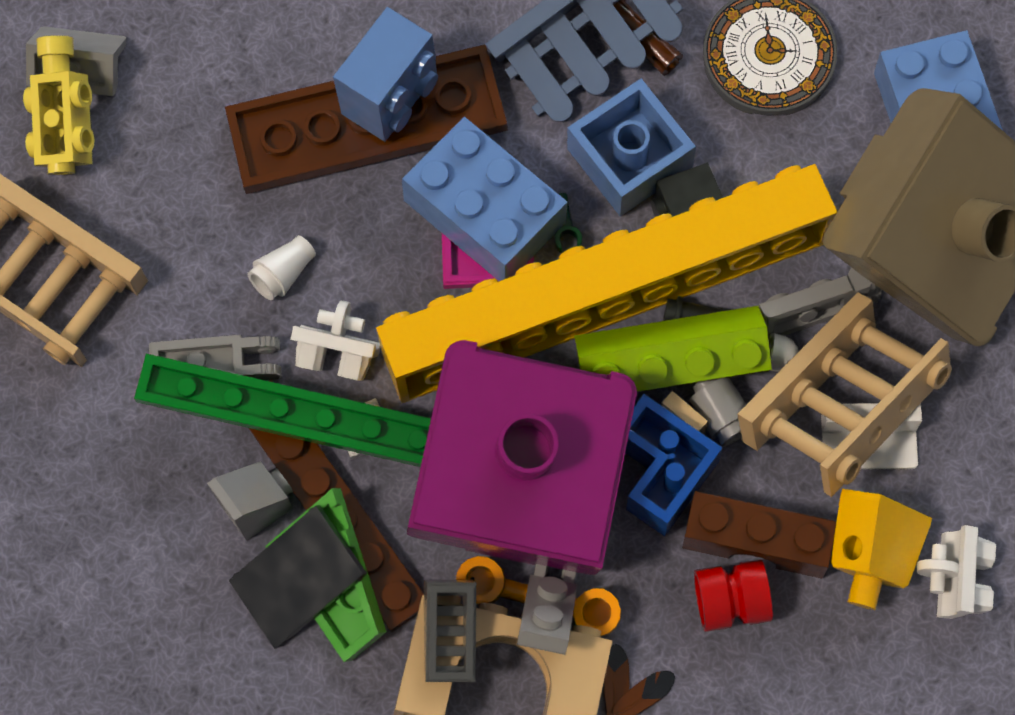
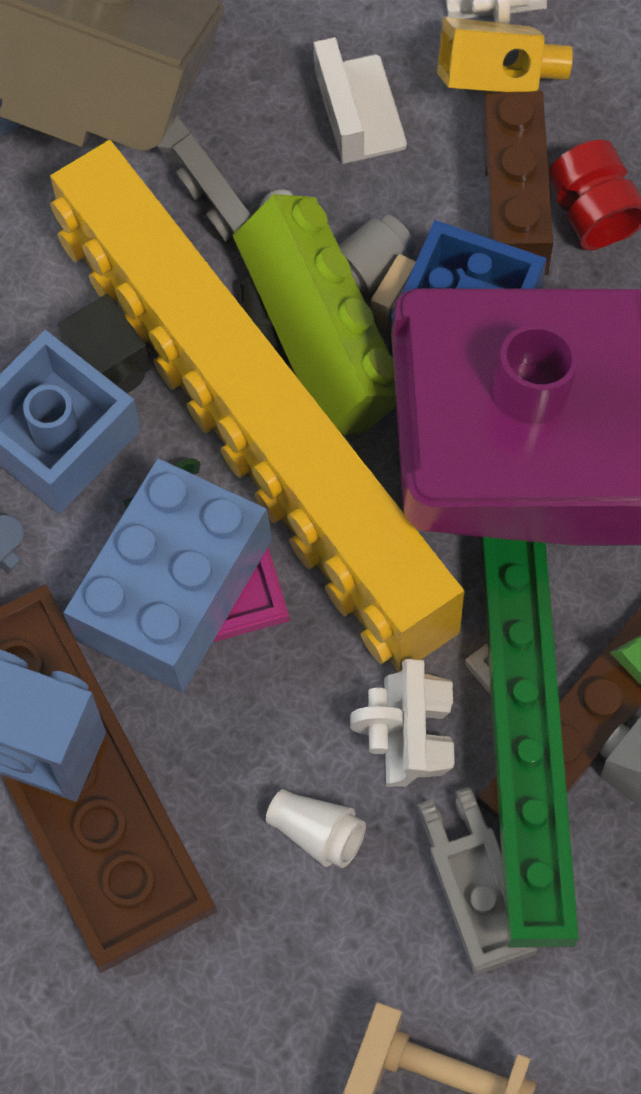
camera: 105 degrees left, 5 degrees down
(826, 357) = (331, 168): tan fence -> none

